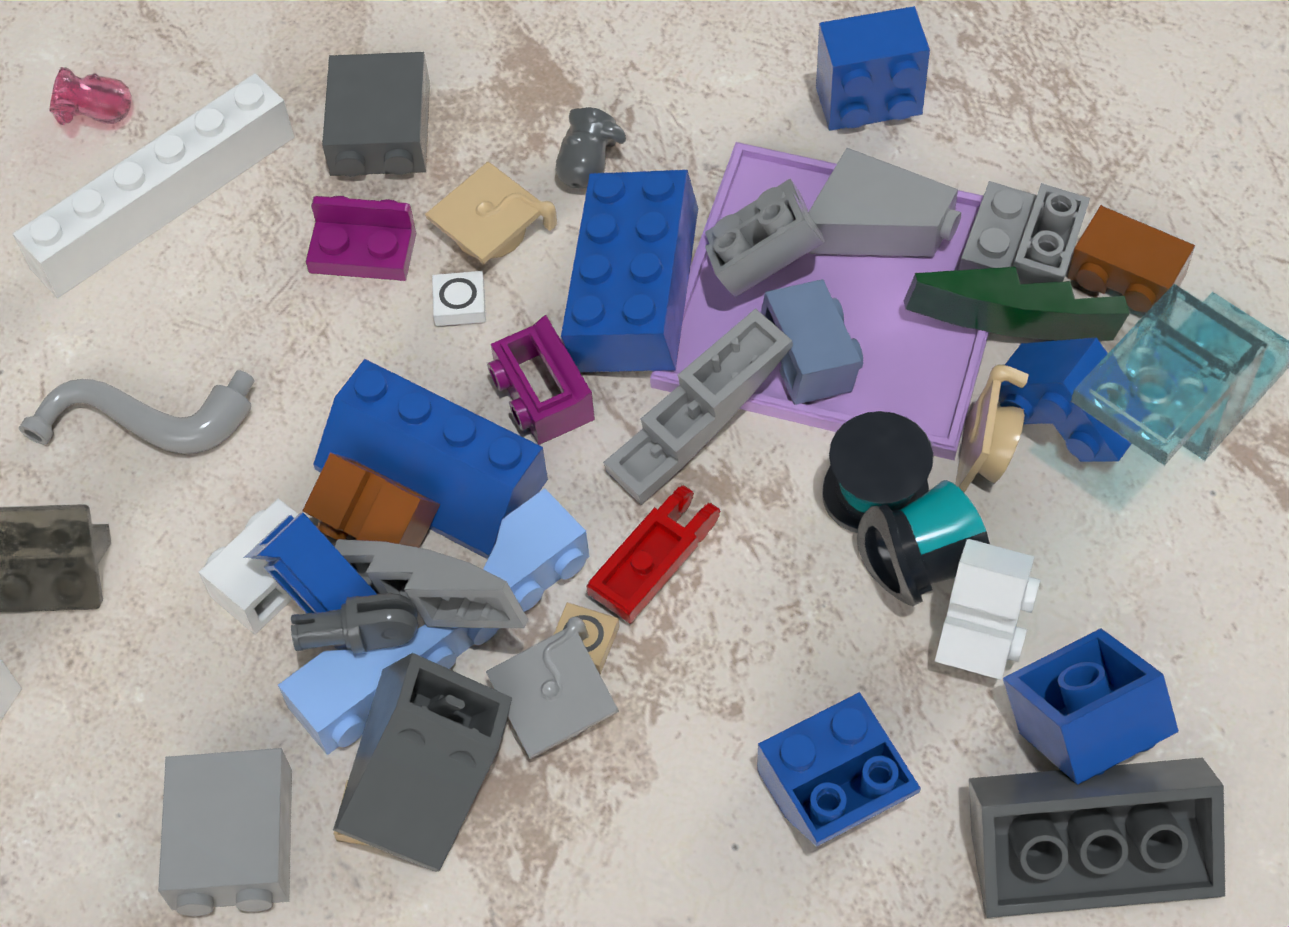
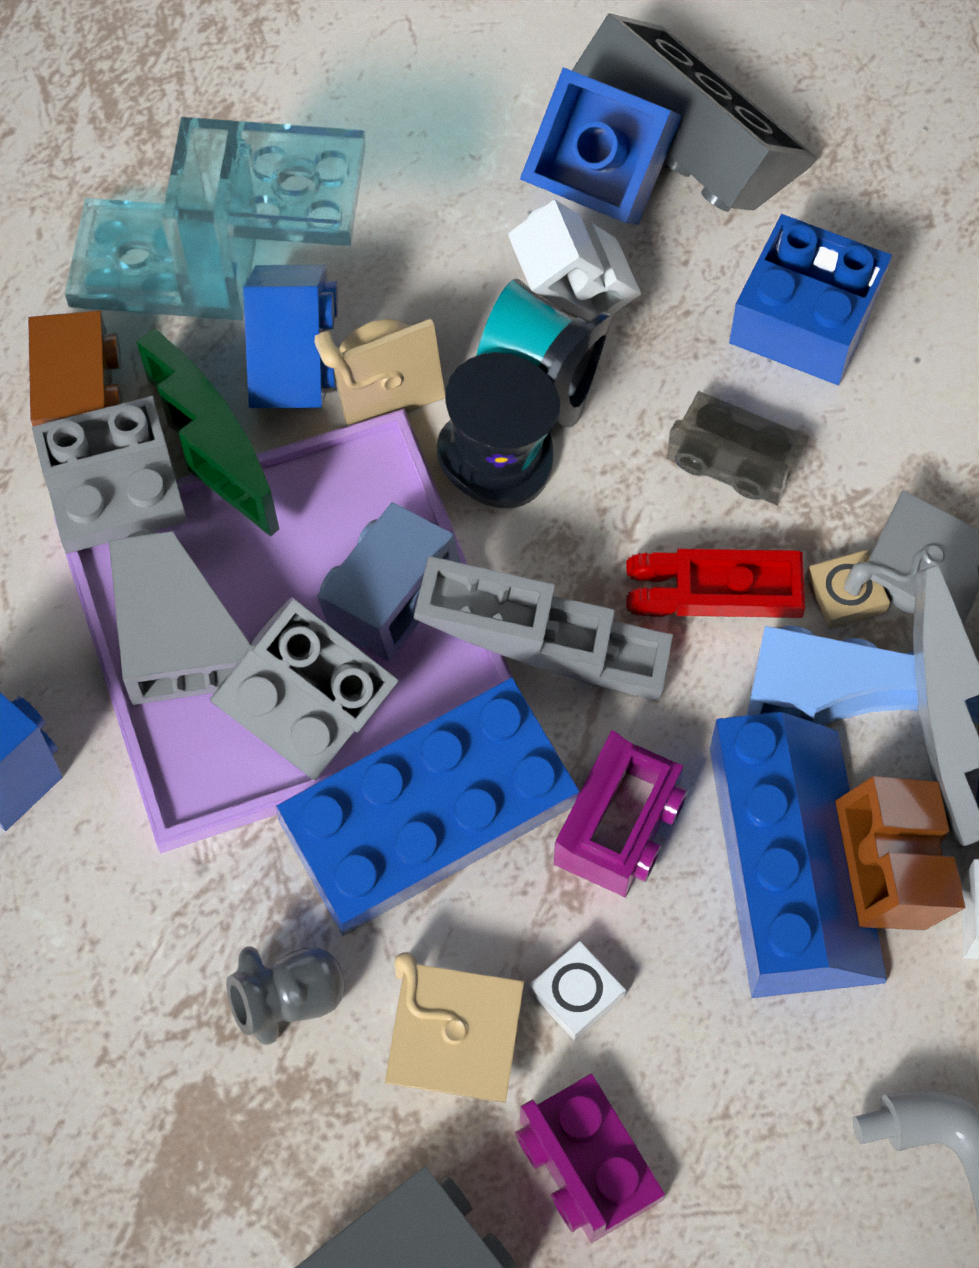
camera: 130 degrees left, 5 degrees up
(752, 643) = (736, 448): none -> clear smoke bracket

